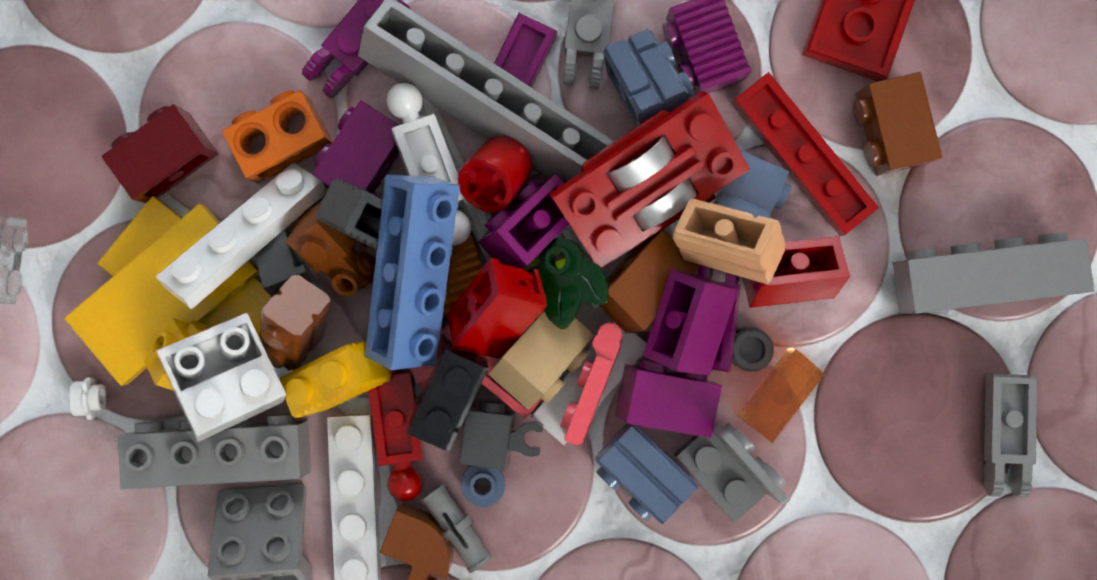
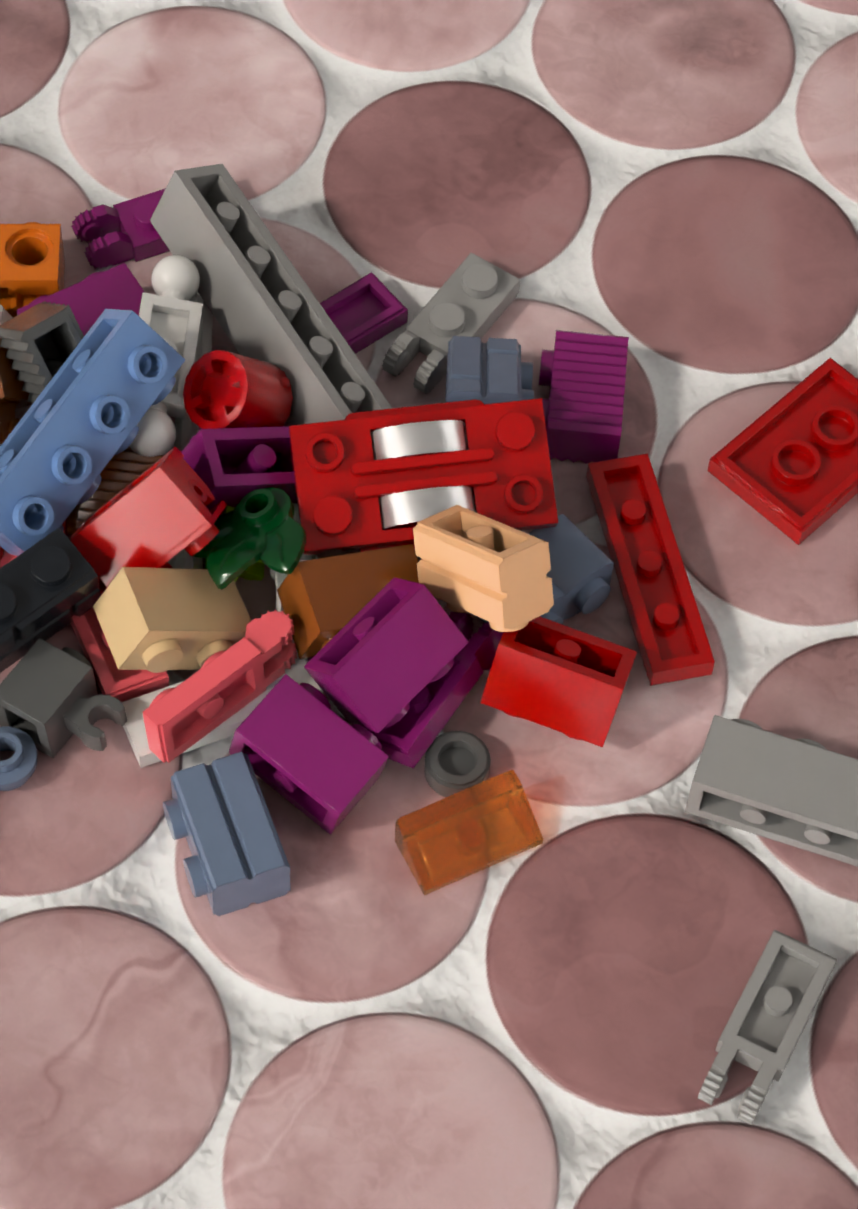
camera: 20 degrees right, 30 degrees down
(730, 472) = (347, 883): light grey bracket -> none
(897, 124) = (787, 583): dark orange brick -> none

